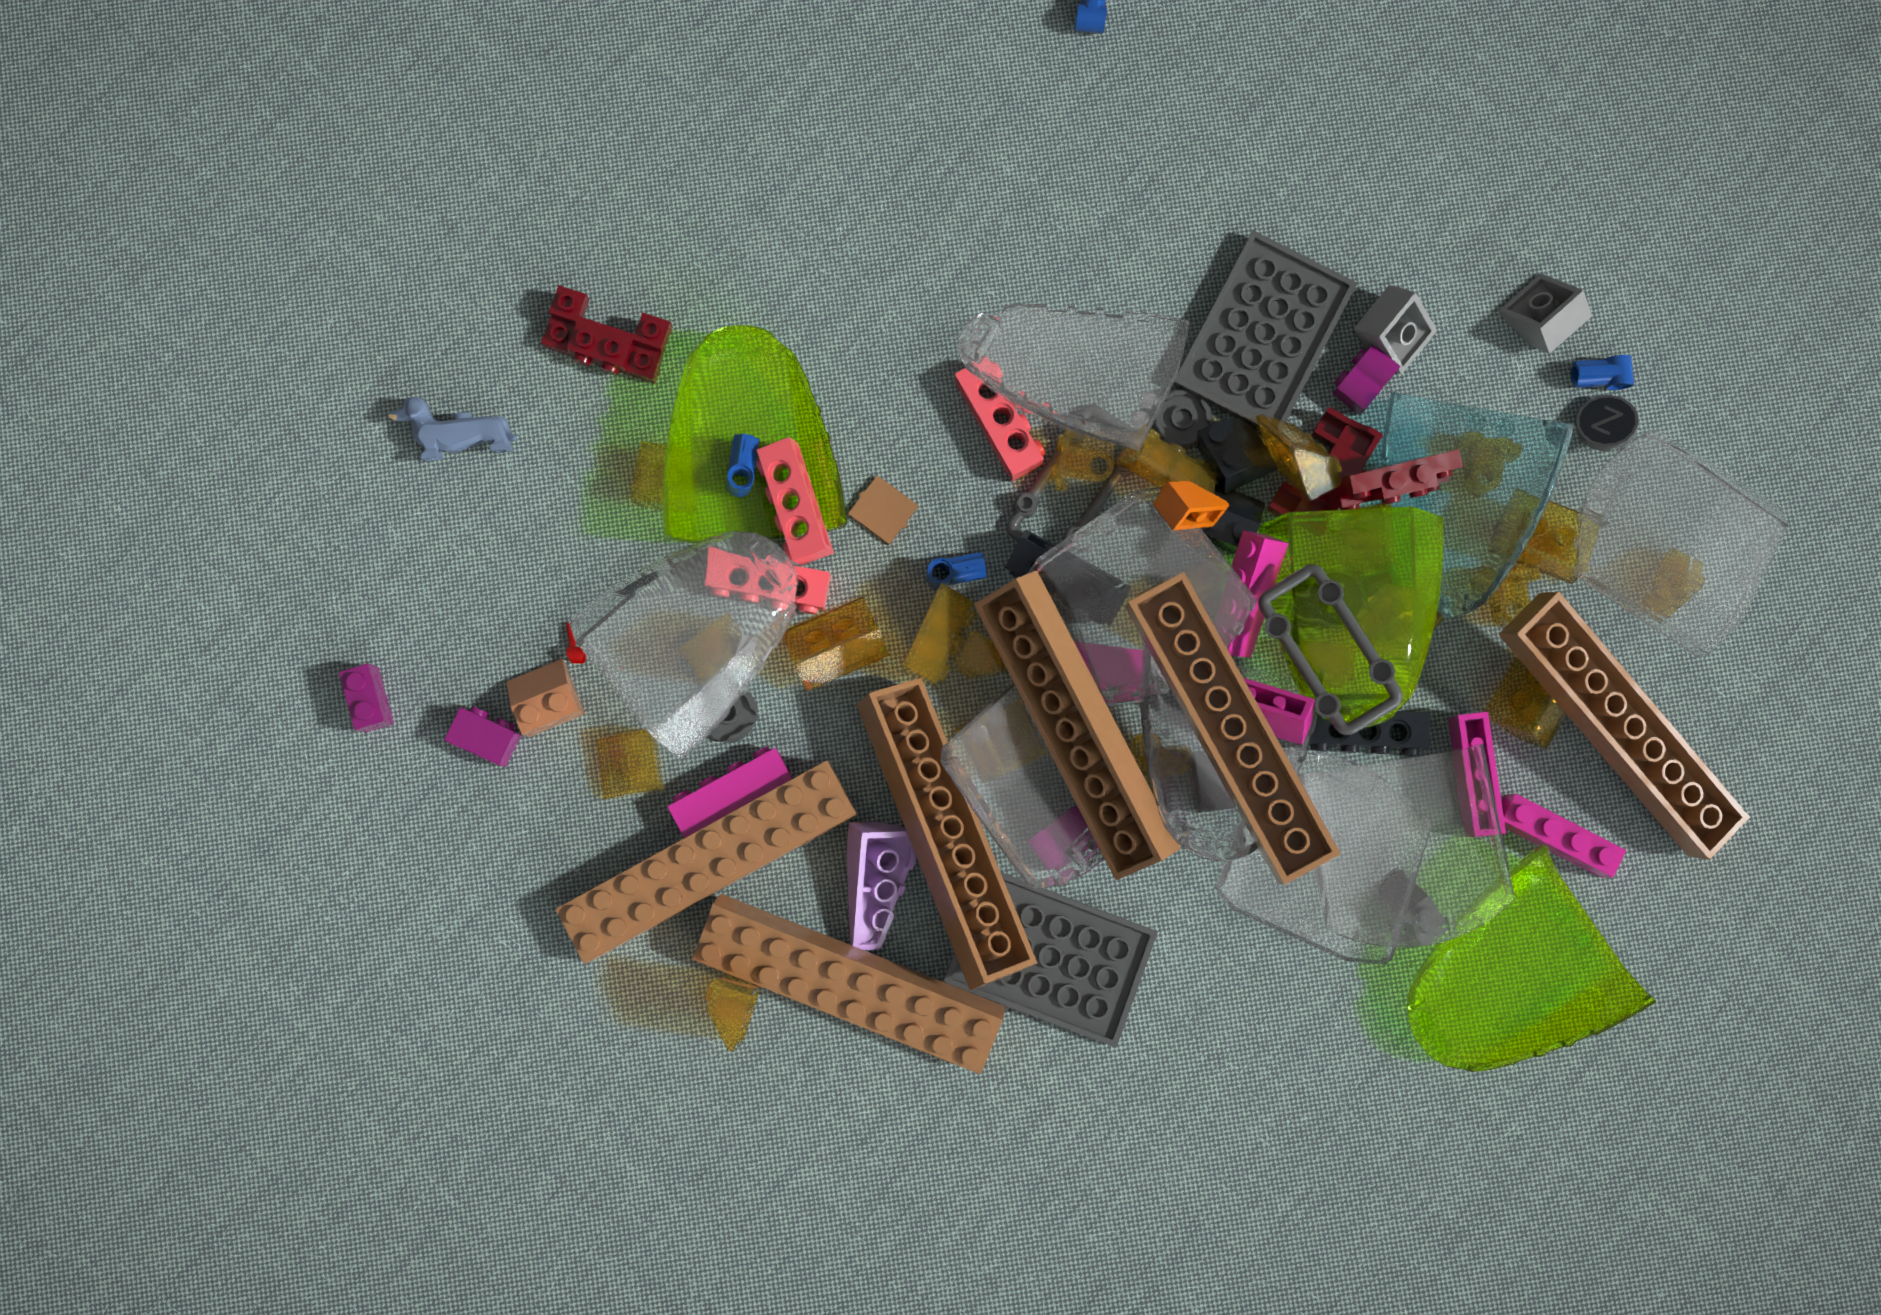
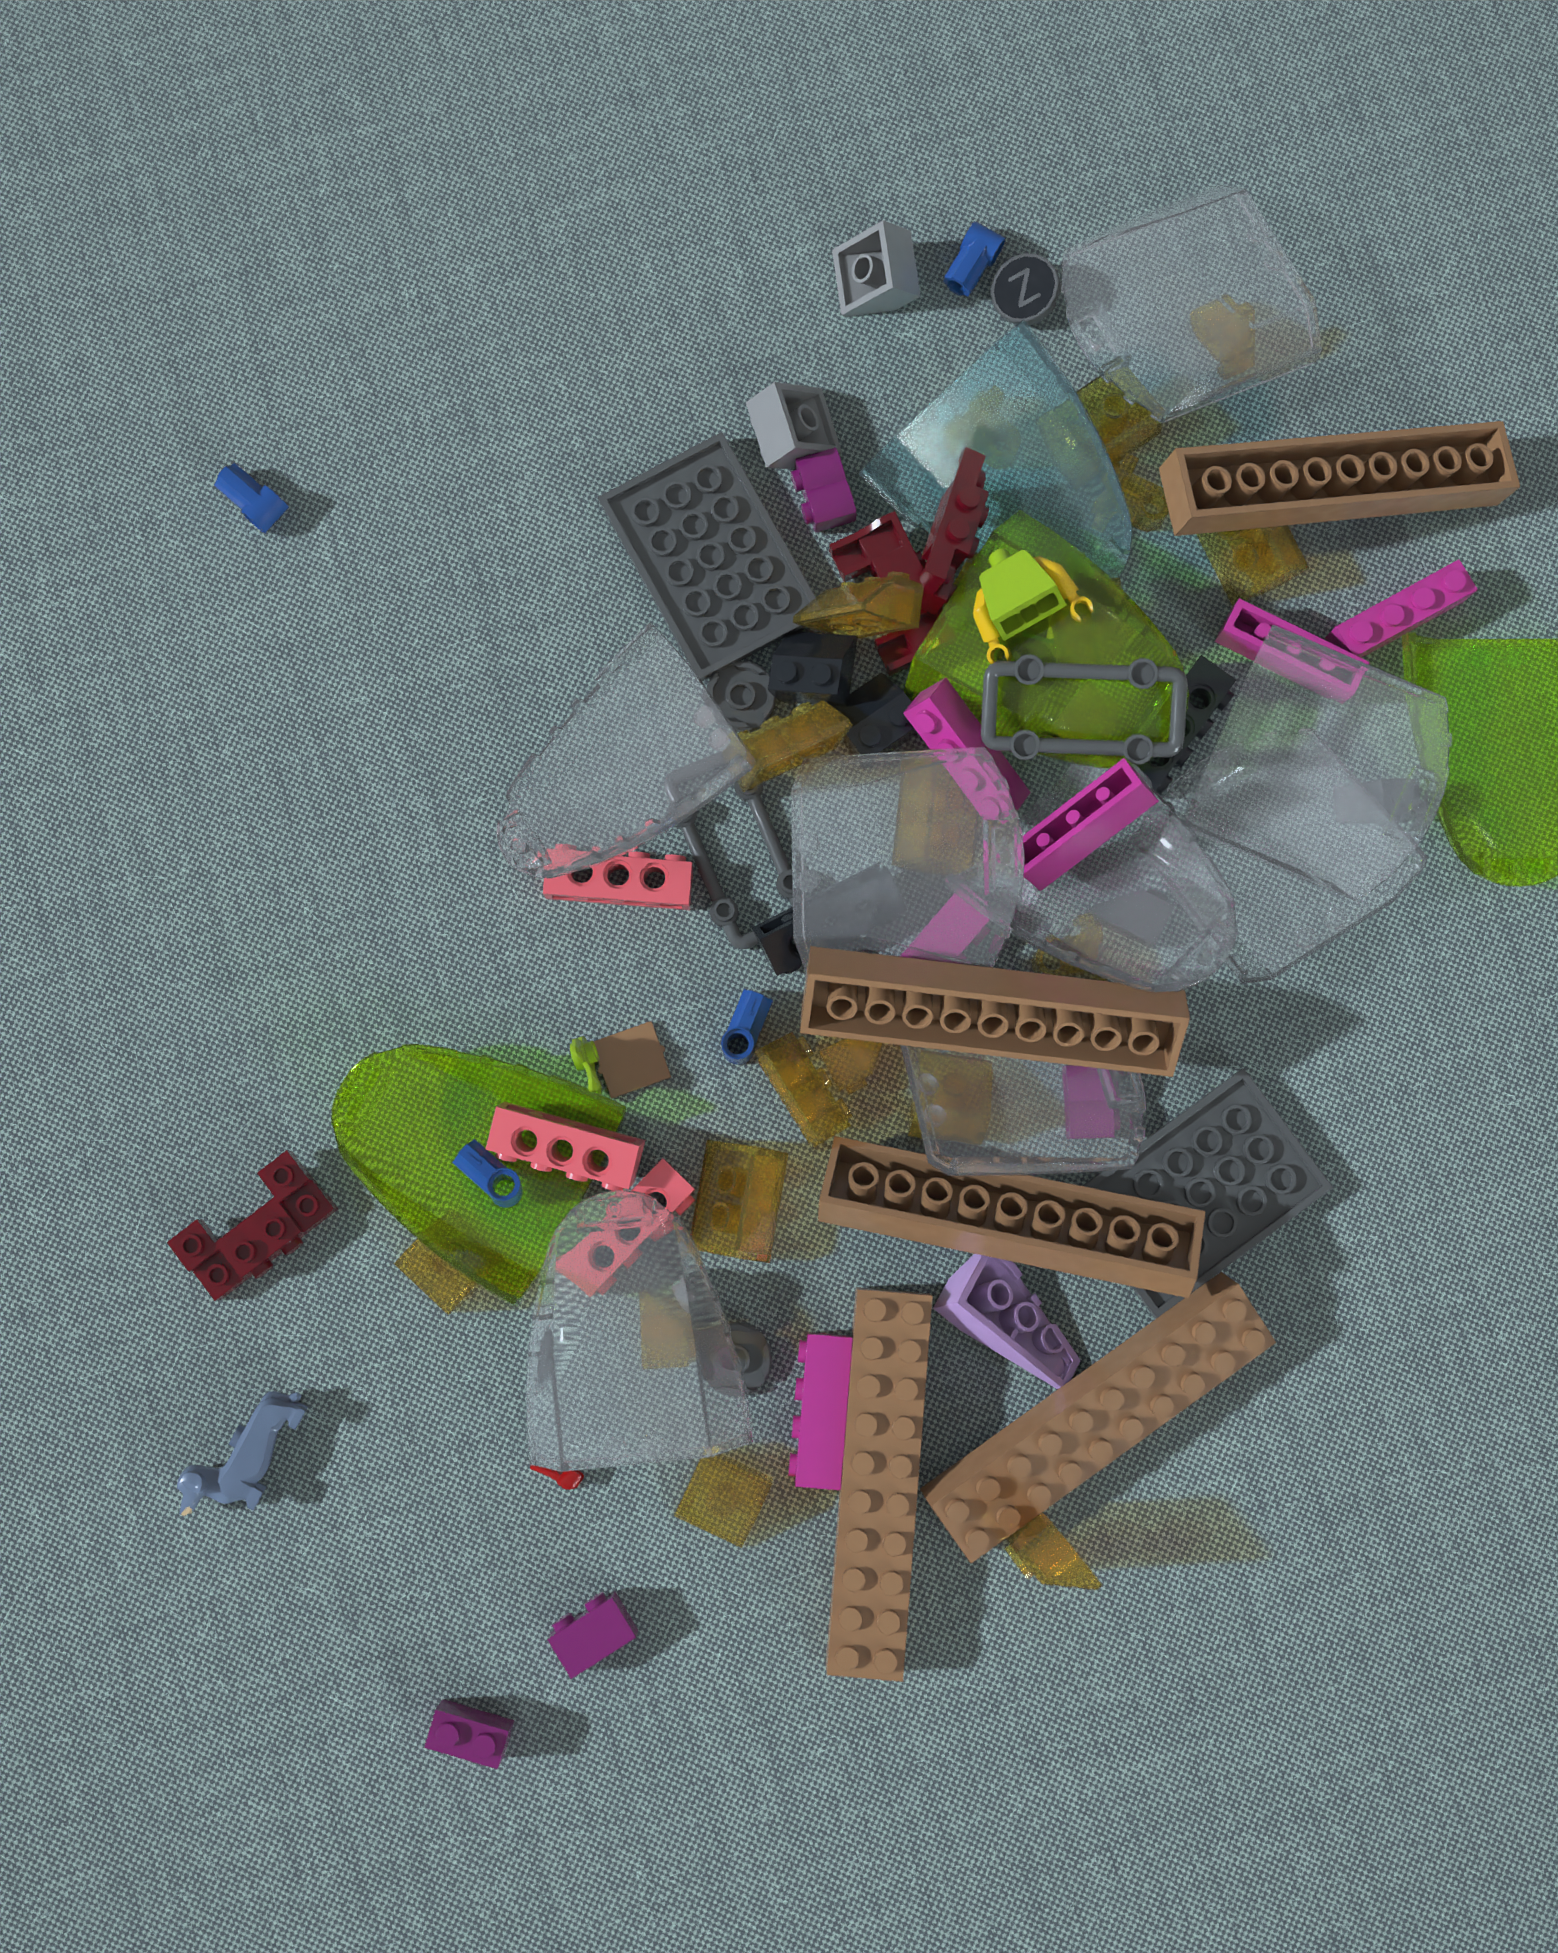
camera: 55 degrees left, 0 degrees up
(543, 698) = (593, 1543): nougat slope -> none
(862, 477) = (584, 1058): none -> lime plate
(1077, 462) = (718, 831): clear yellow pin -> none
(1189, 505) = (843, 750): orange slope -> none
(1232, 729) = (1105, 859): medium nougat brick -> none
(1379, 551) = (1019, 594): none -> lime torso

